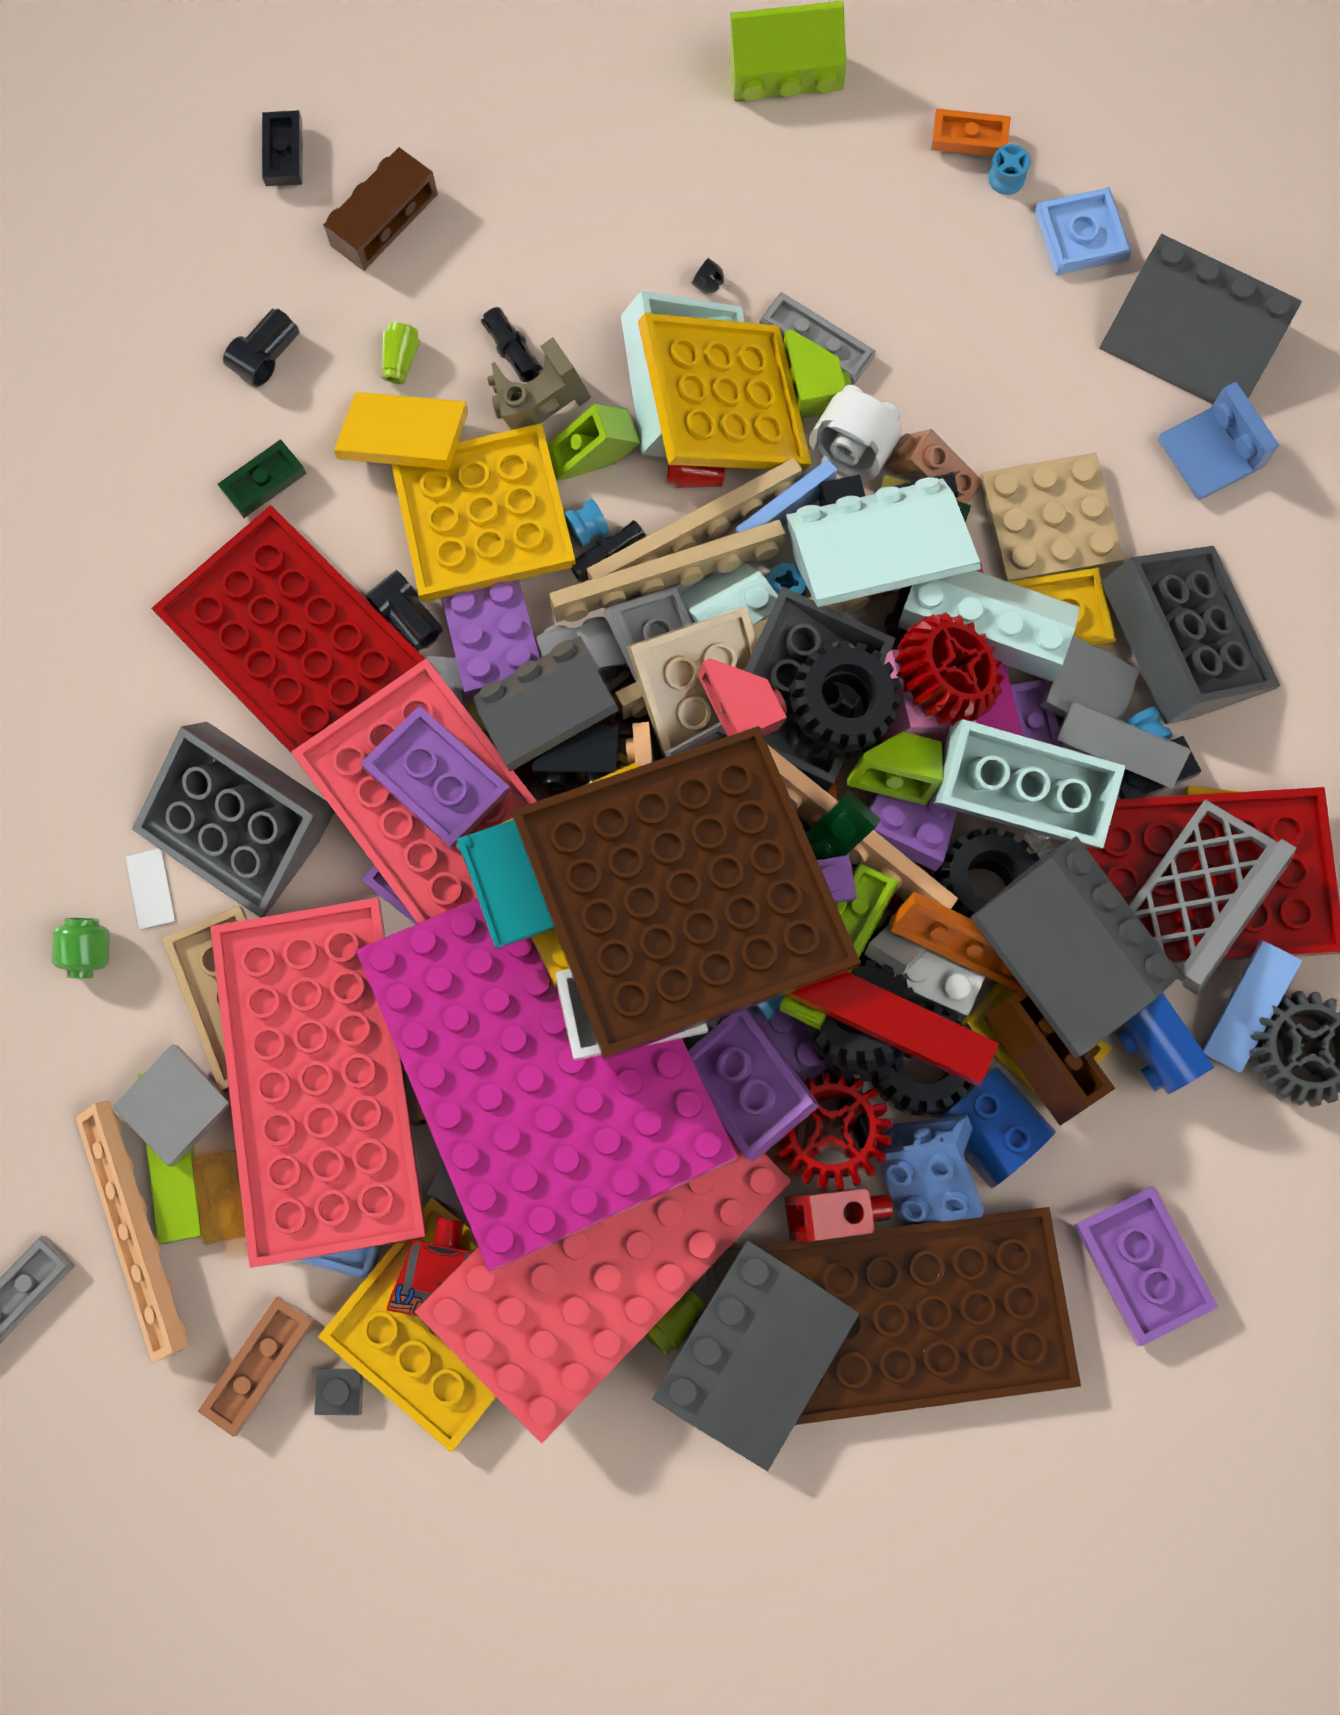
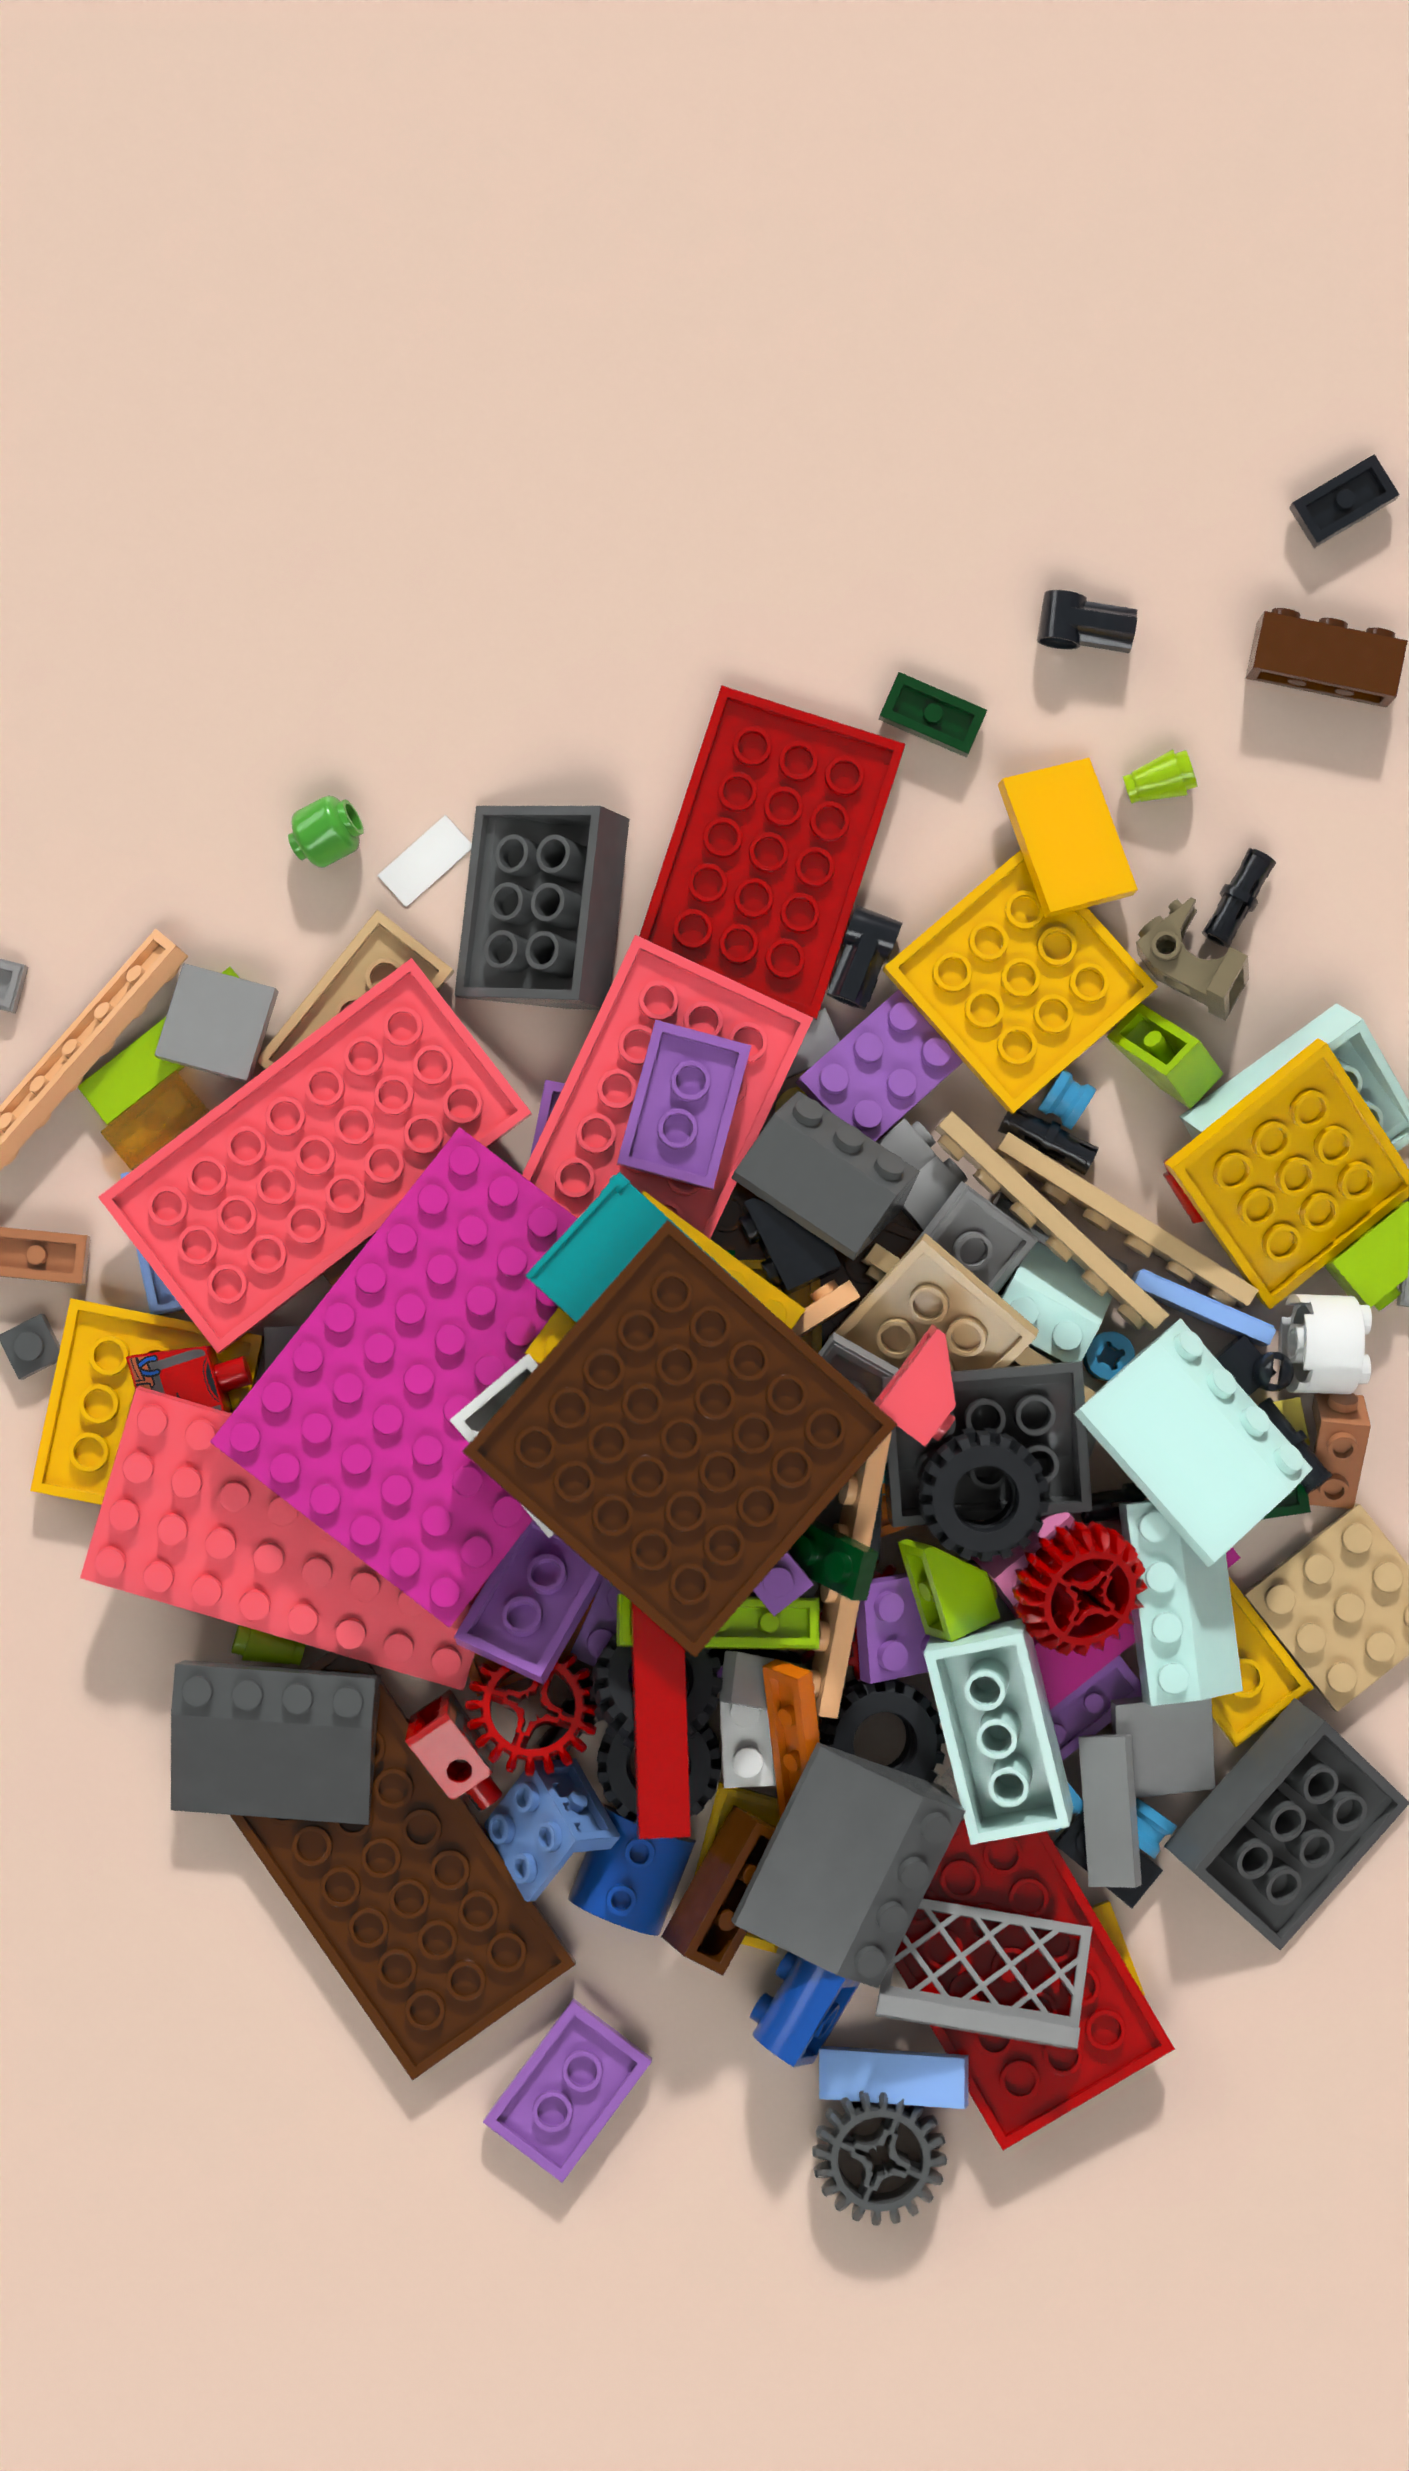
camera: 60 degrees right, 10 degrees up
(853, 478) = (1263, 1369): none -> black hinge

